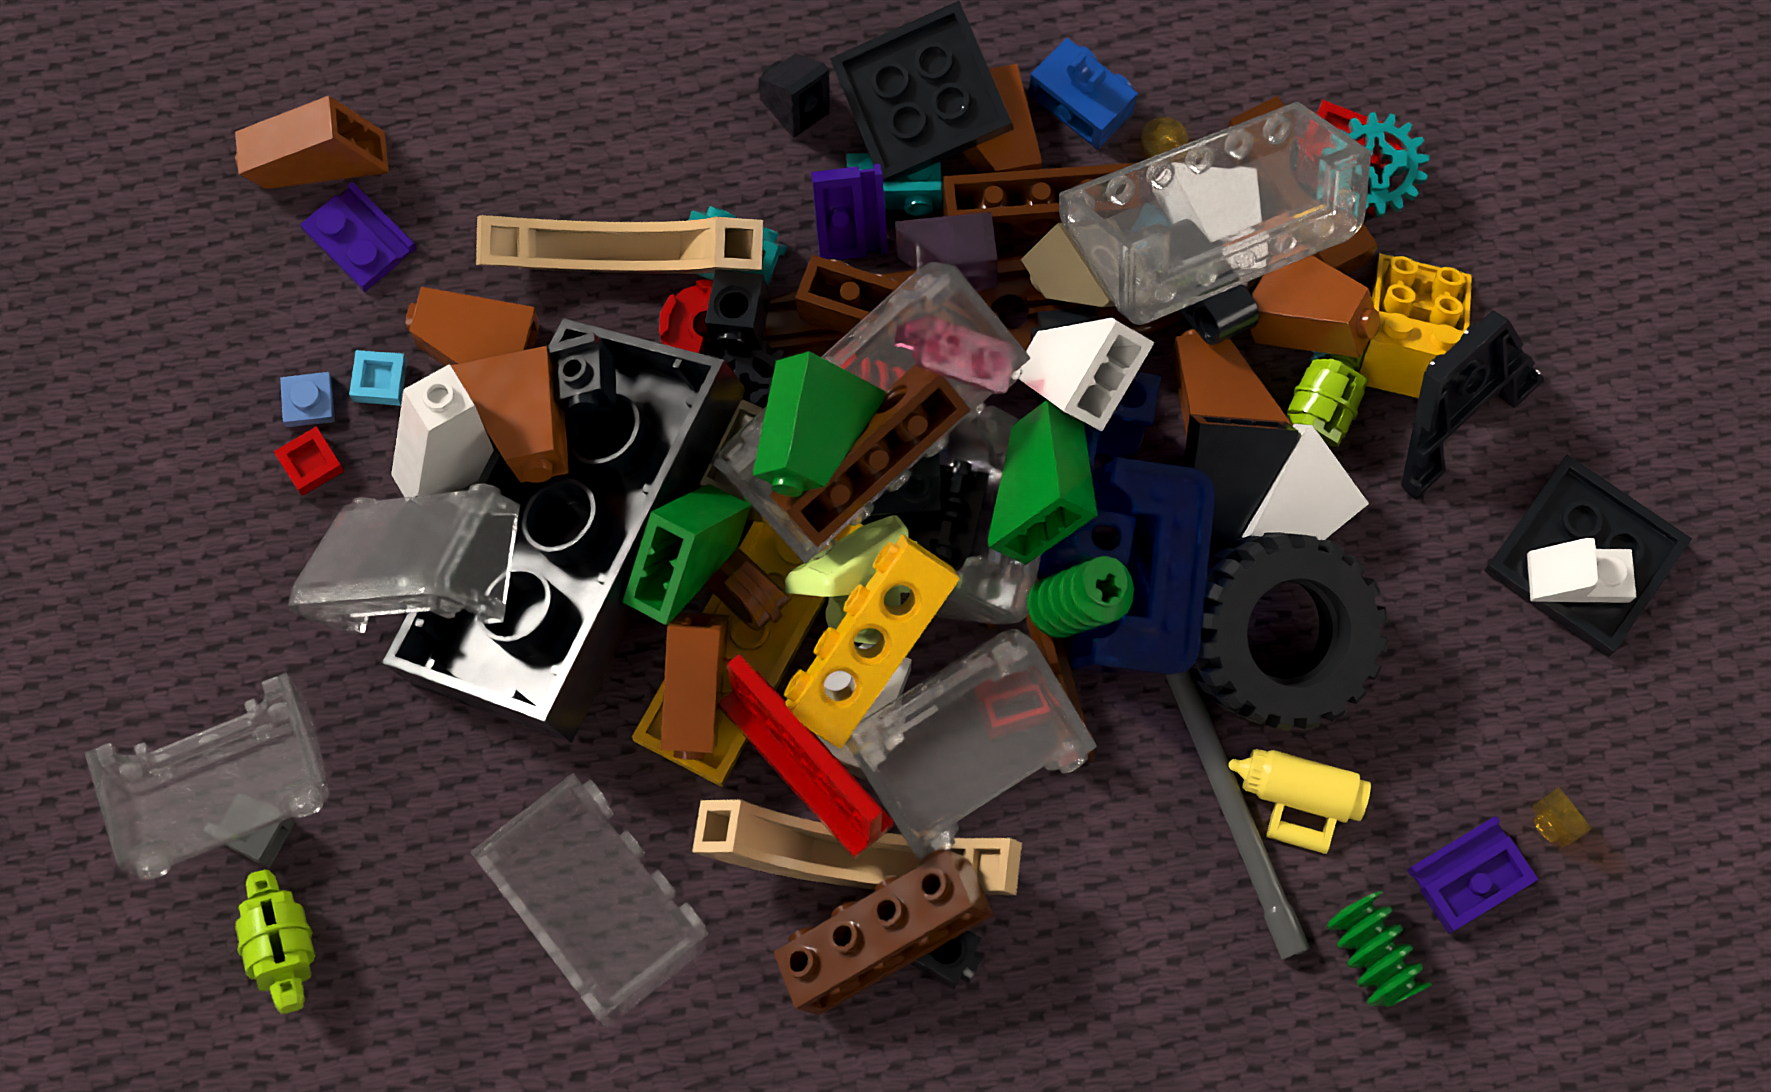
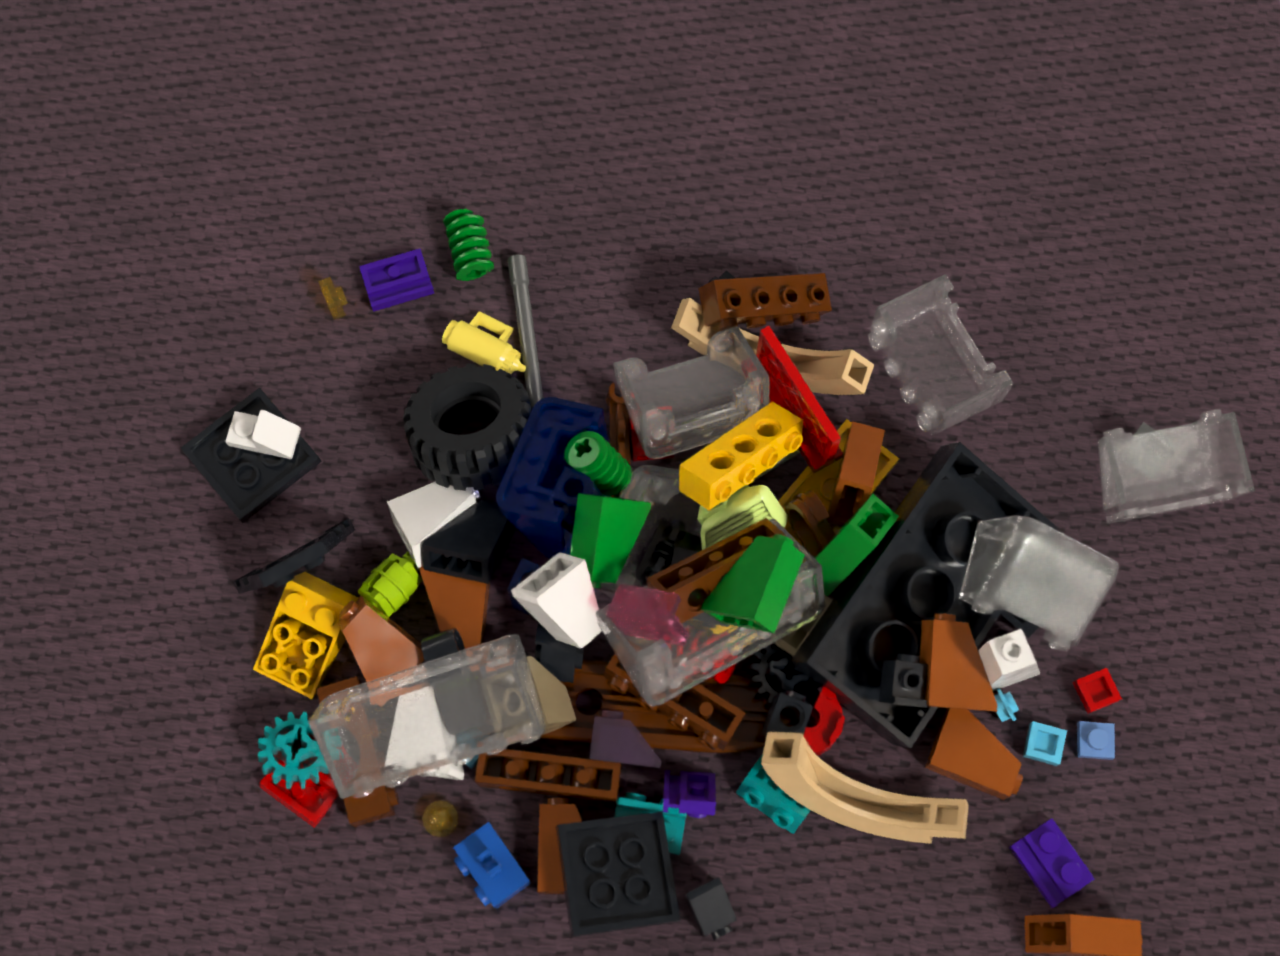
camera: 165 degrees left, 0 degrees up
(261, 943) = (1125, 380): lime piece -> none

